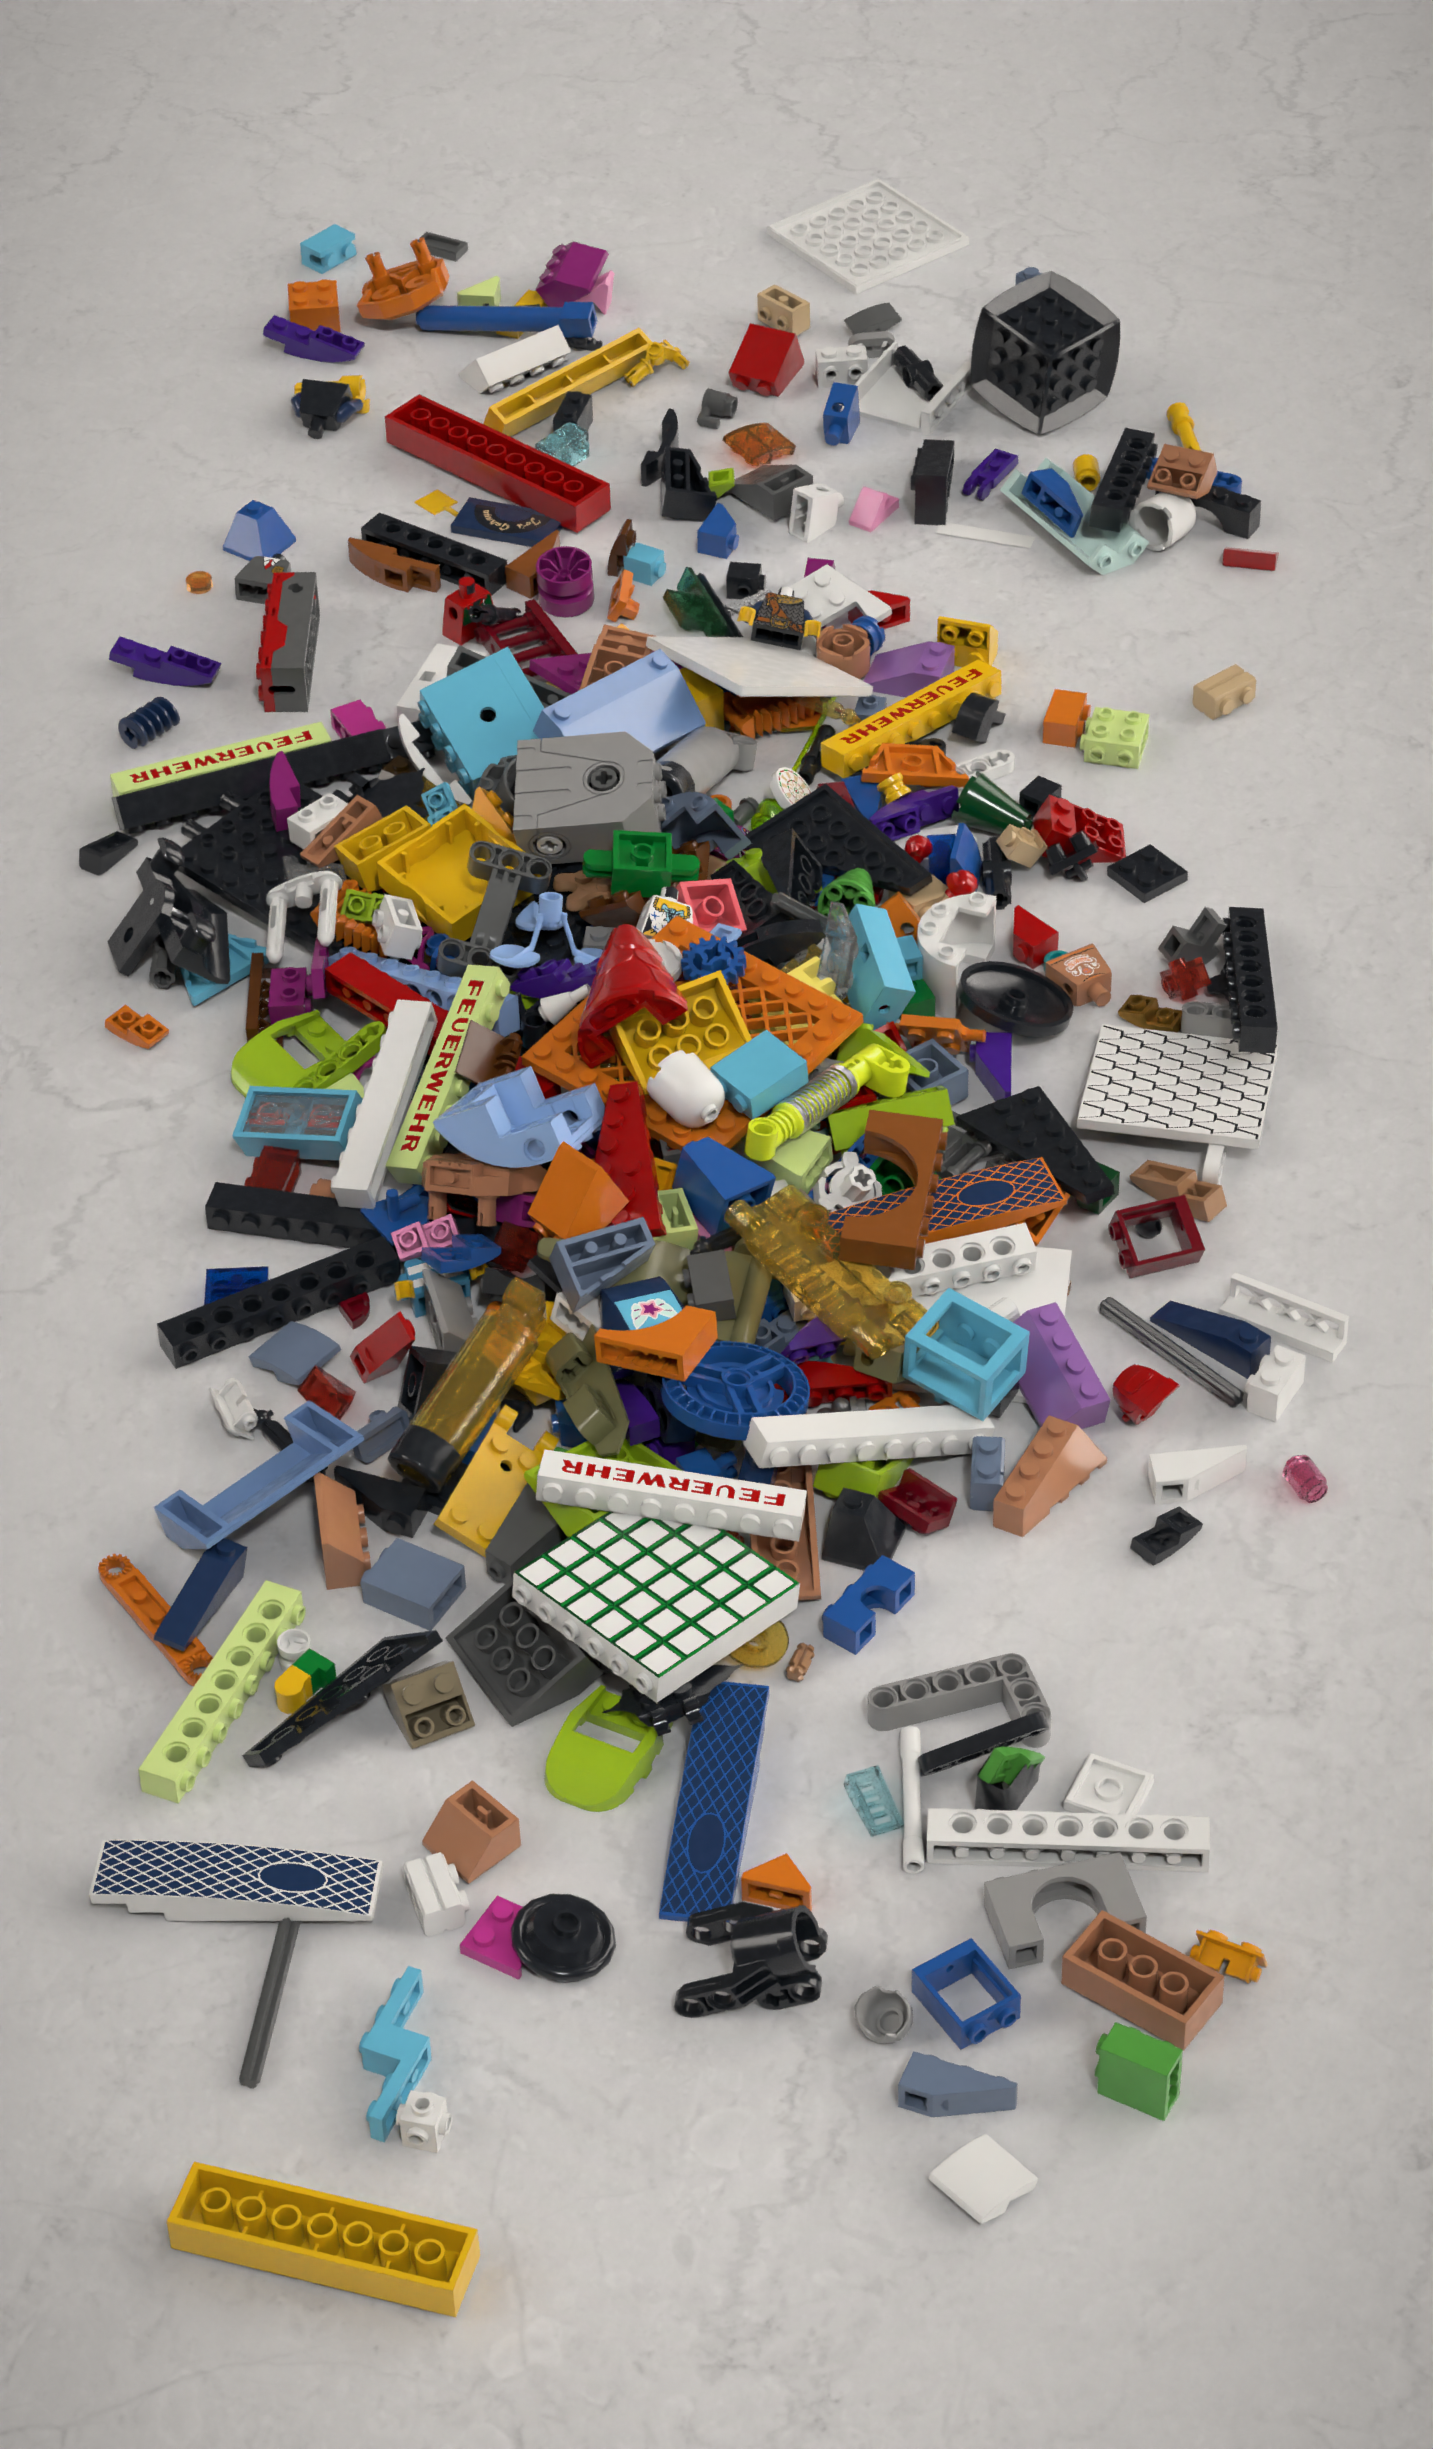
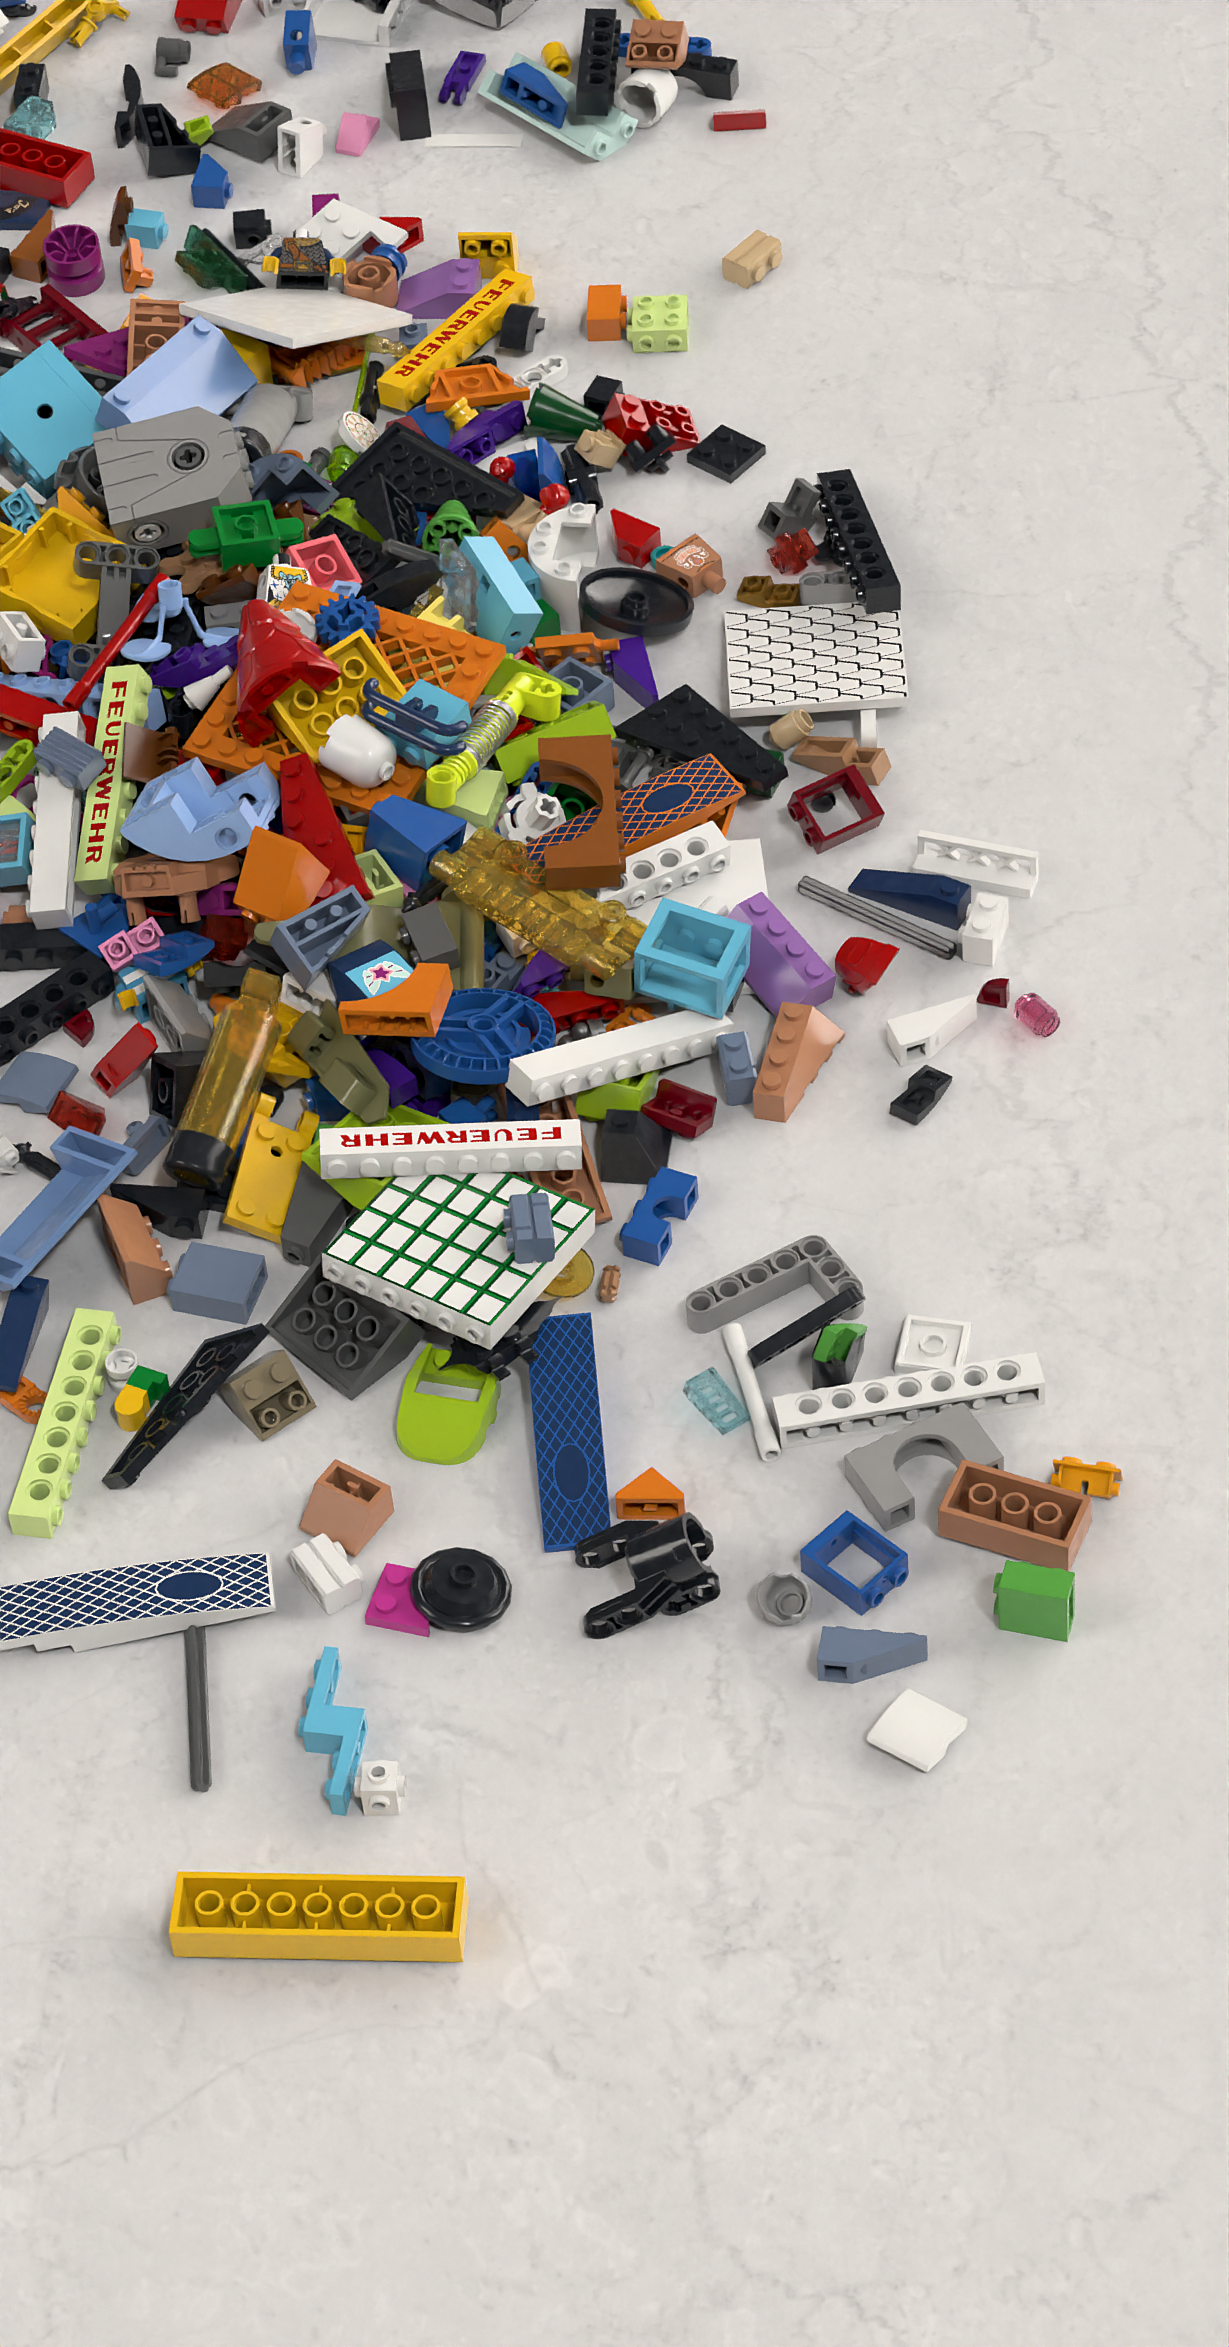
camera: 10 degrees left, 5 degrees up
(408, 1046) = (69, 759): none -> sand blue brick
(444, 981) = (83, 688): none -> red piece
(726, 1589) = (530, 1228): none -> sand blue brick
(744, 1068) = (411, 721): none -> dark blue piece
(1134, 1150) = (790, 729): none -> tan brick
(1269, 1449) = (995, 993): none -> dark red tile

